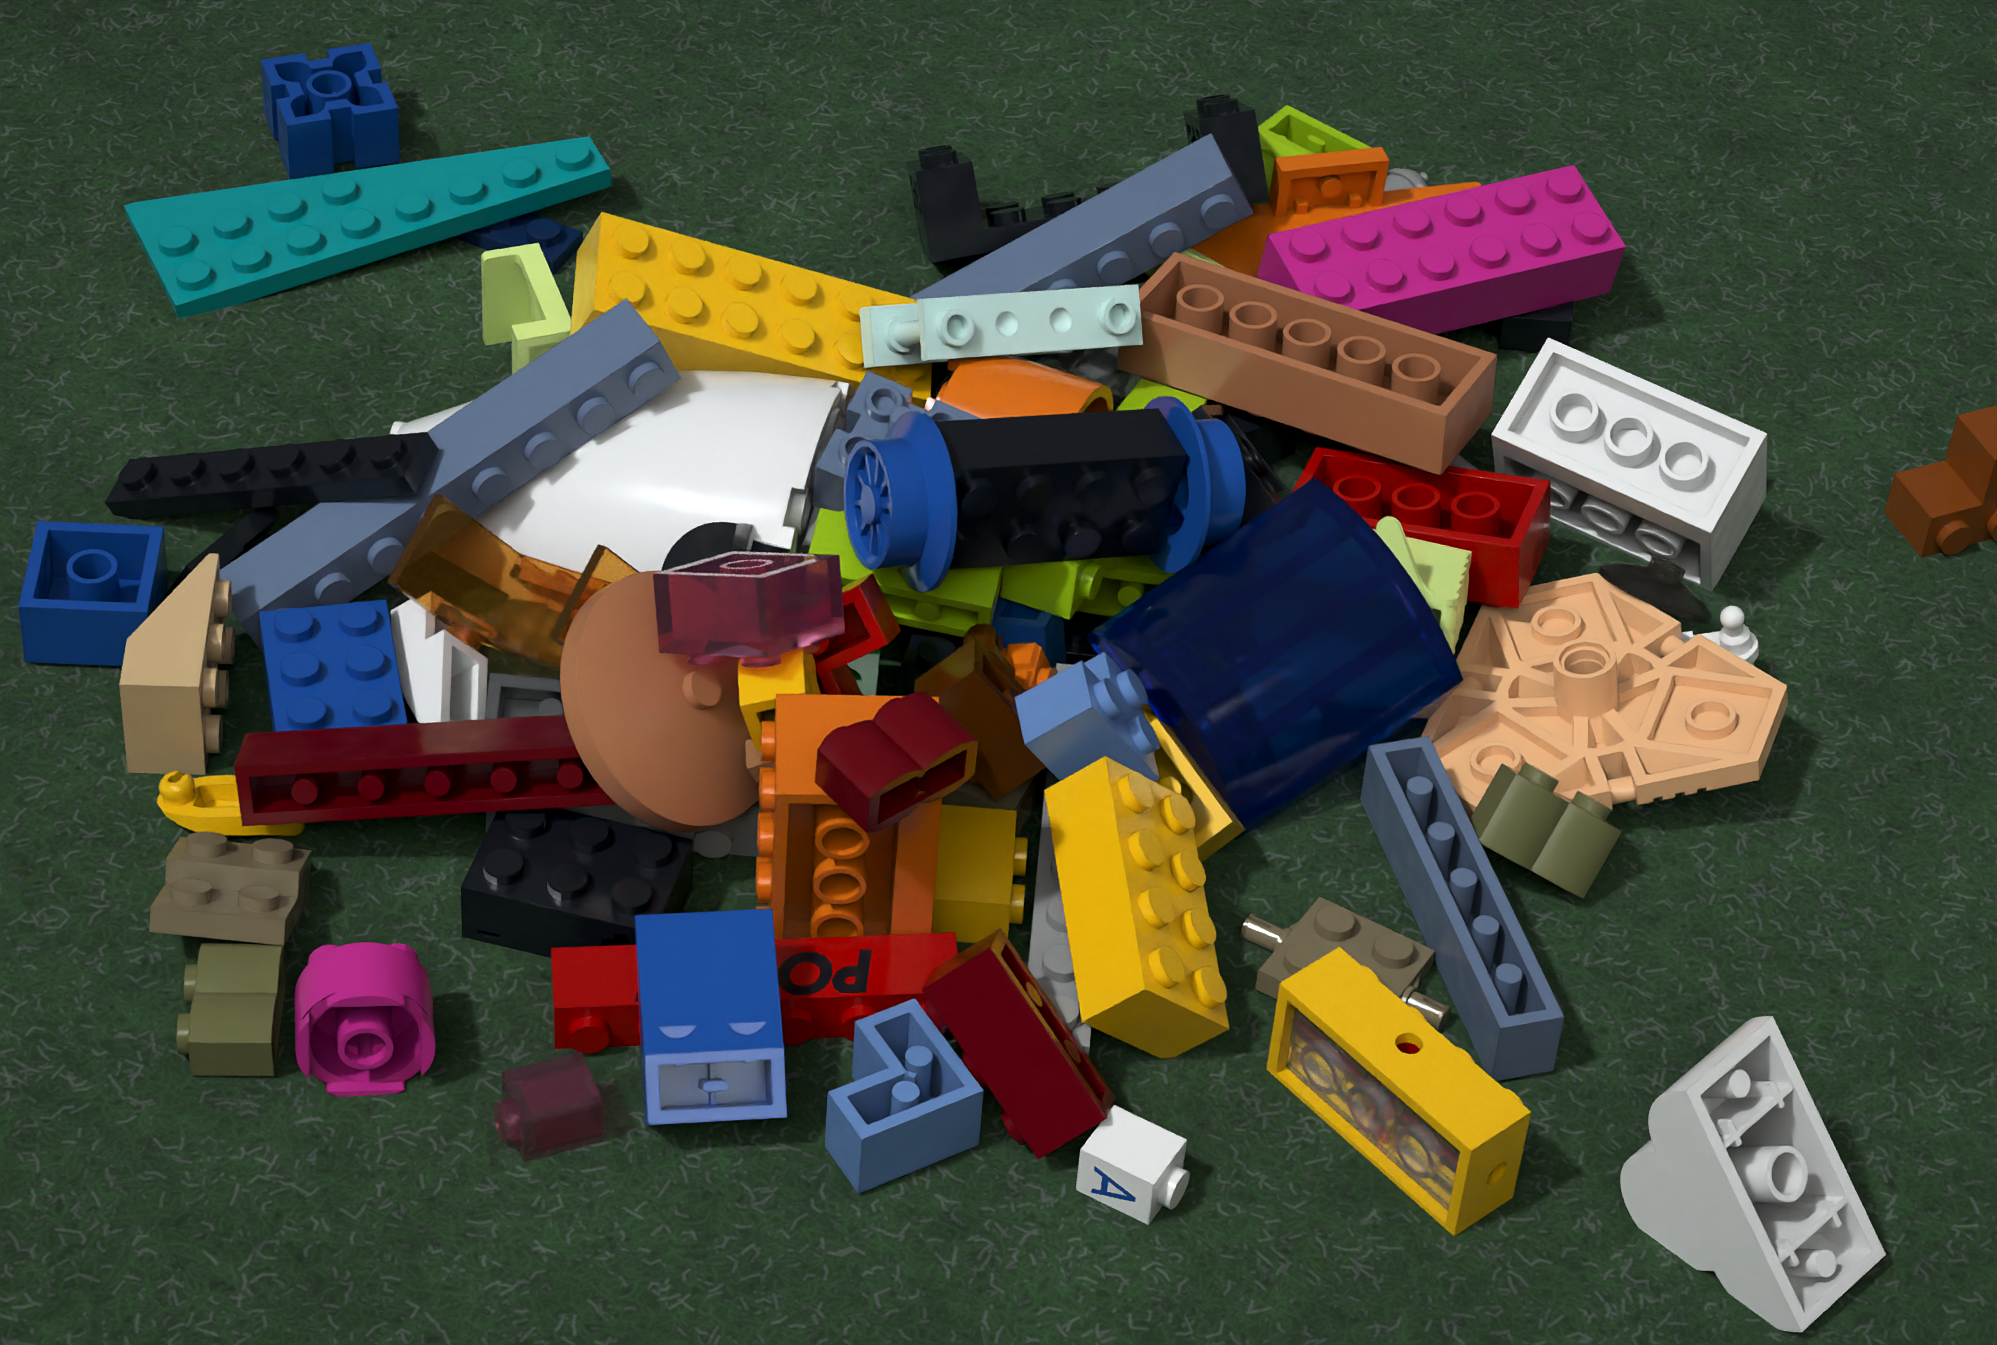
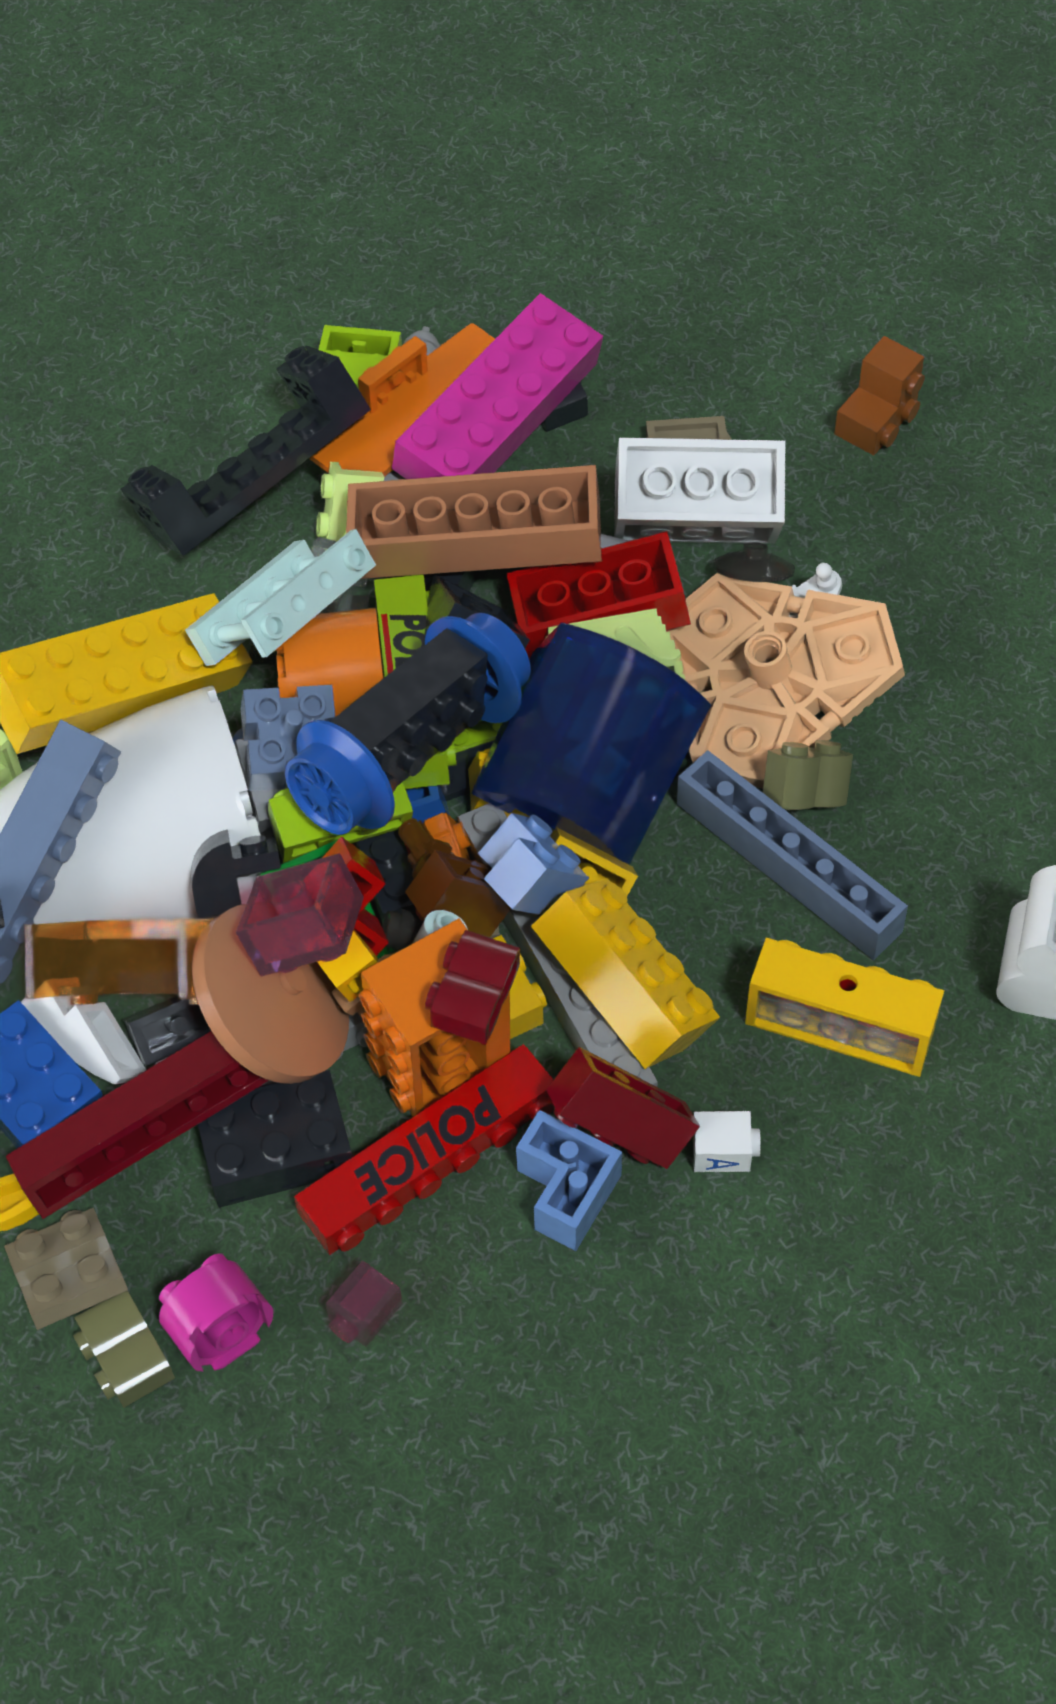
camera: 25 degrees left, 15 degrees up
(709, 1017) = (429, 1196): blue slope -> none
(1113, 232) = (289, 498): sand blue brick -> none
(1326, 926) = (737, 924): dark tan plate -> none

